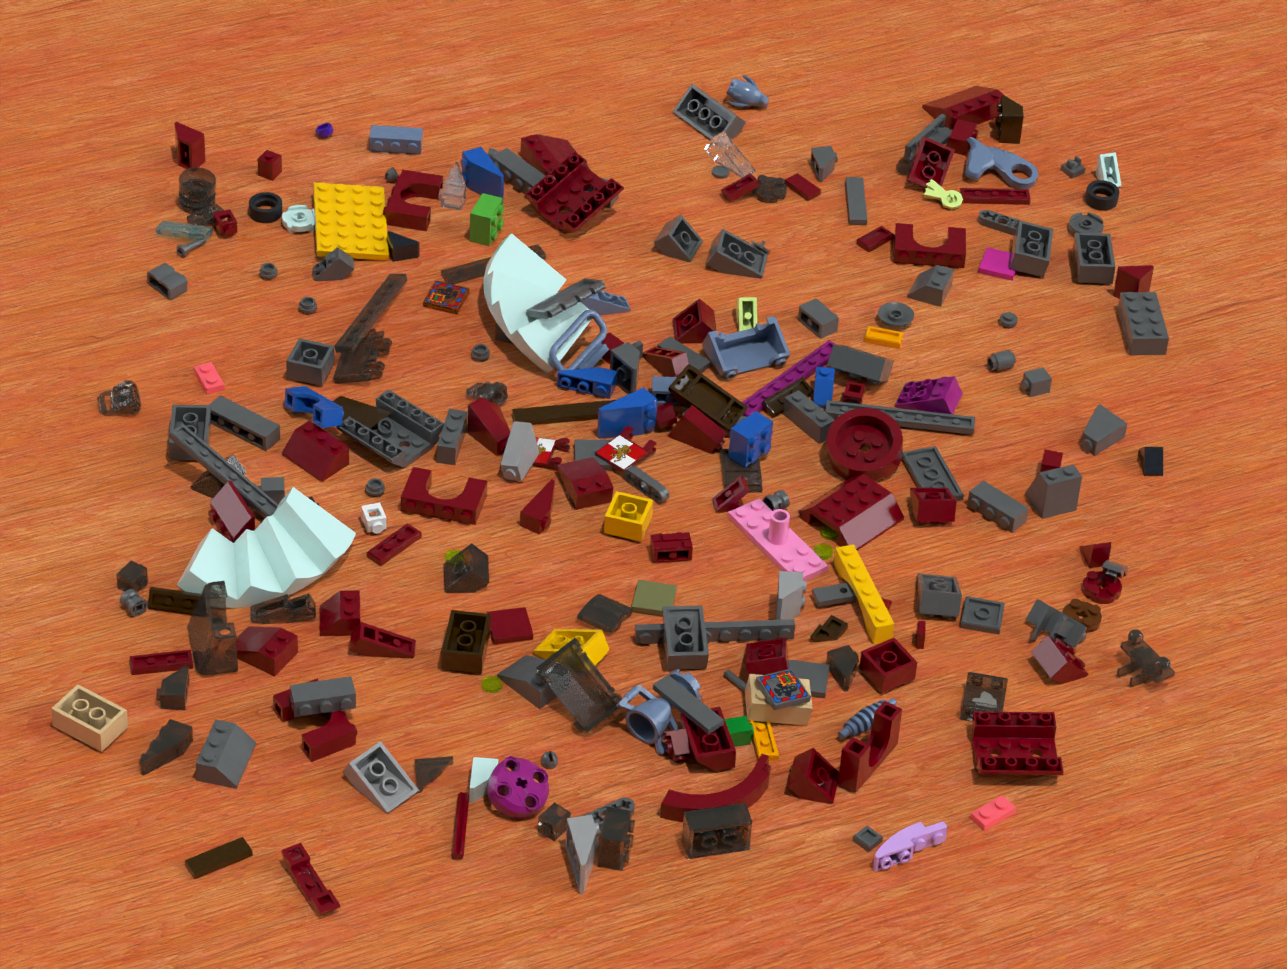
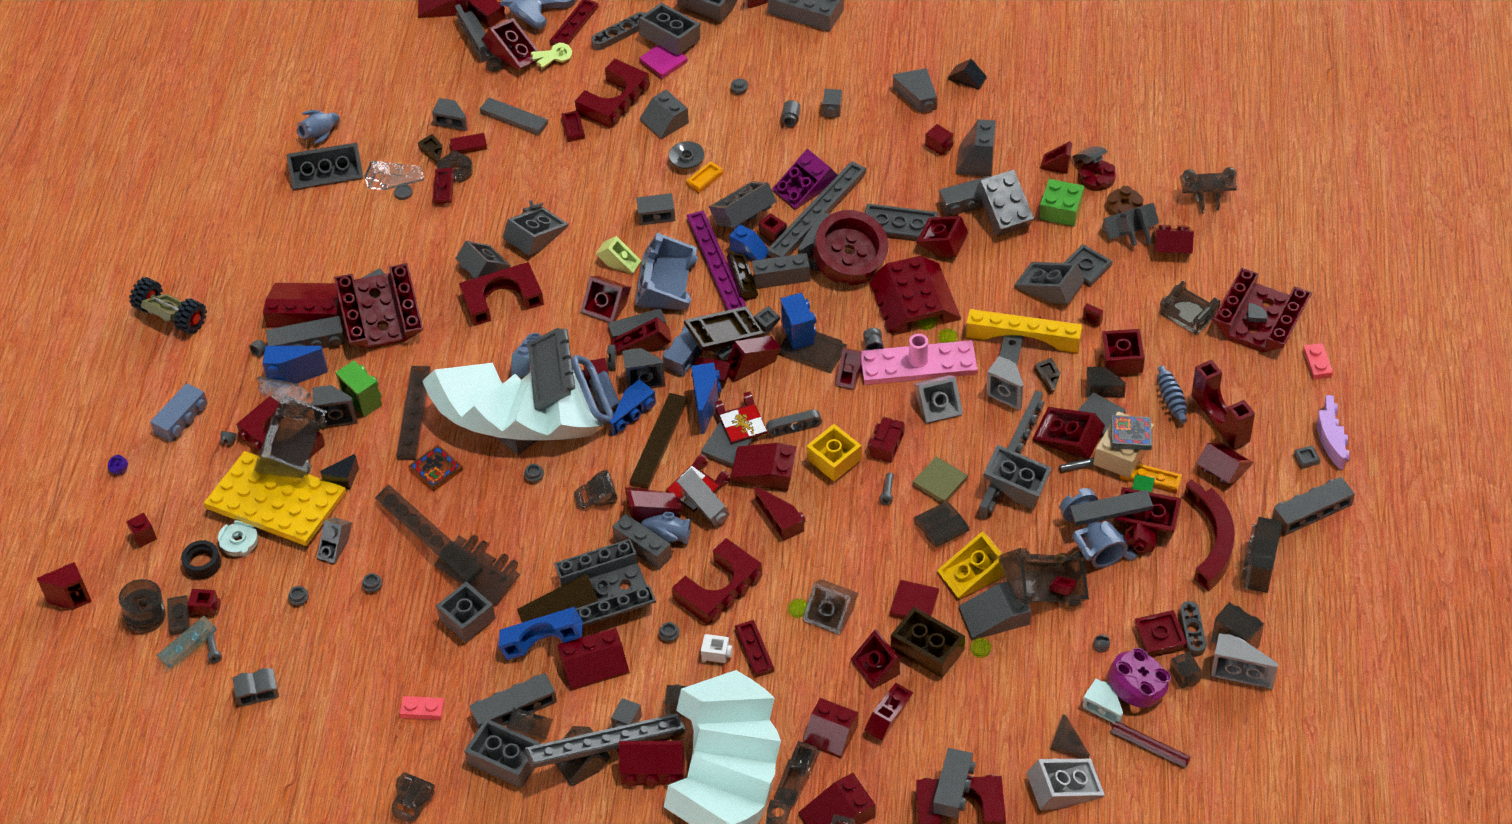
camera: 55 degrees left, 10 degrees up
(225, 433) = (529, 723): none -> clear smoke slope
(401, 198) = (290, 438): none -> clear smoke windscreen
(430, 620) = (876, 660): none -> dark red slope
(455, 211) = (337, 404): none -> dark grey slope
(477, 447) = (669, 527): none -> sand blue animal
(492, 89) = (148, 298): none -> black plate
(585, 793) = (1160, 633): none -> dark red plate
(586, 707) = (1063, 585): none -> dark red tile
(608, 569) = (886, 497): none -> dark grey piece
(643, 249) = (518, 278): none -> dark red arch
(742, 564) = (938, 398): none -> light grey slope
(781, 168) = (431, 147): none -> dark brown slope
(807, 856) = (1313, 505): none -> dark grey brick
(1001, 526) = (1005, 202): none -> brick
(1008, 743) = (1256, 313): none -> dark grey tile
(1041, 570) = (1061, 202): none -> bright green brick

